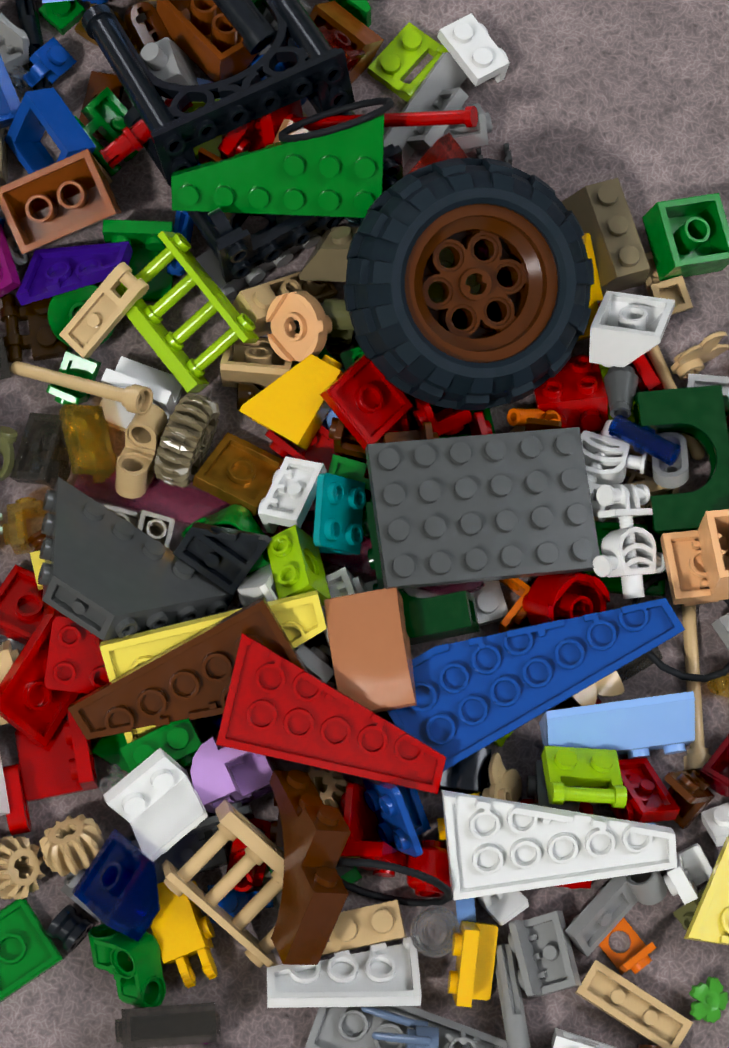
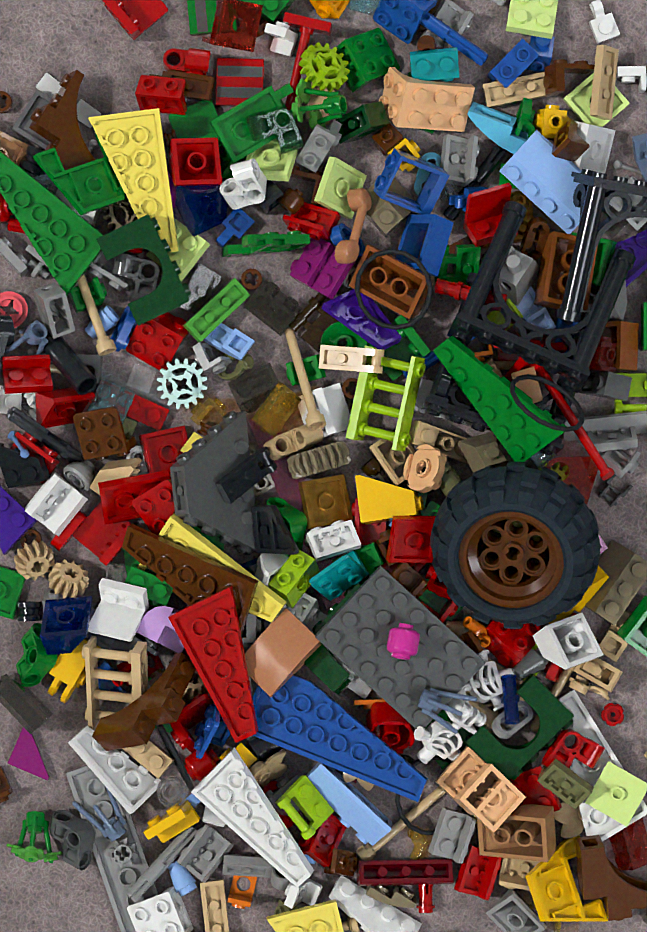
camera: 50 degrees right, 15 degrees up
(12, 199) = (422, 268): none -> black piece
(73, 53) = (485, 213): none -> red bracket
(130, 352) = (346, 384): none -> reddish brown bush
(130, 528) = (246, 475): none -> black plate
(376, 74) = (607, 385): none -> dark grey slope
(477, 486) = (403, 642): none -> dark pink head
(554, 1012) = (181, 879): none -> light blue cone
(574, 514) = (430, 701): none -> sand blue plant
(690, 328) = (599, 673): none -> tan slope

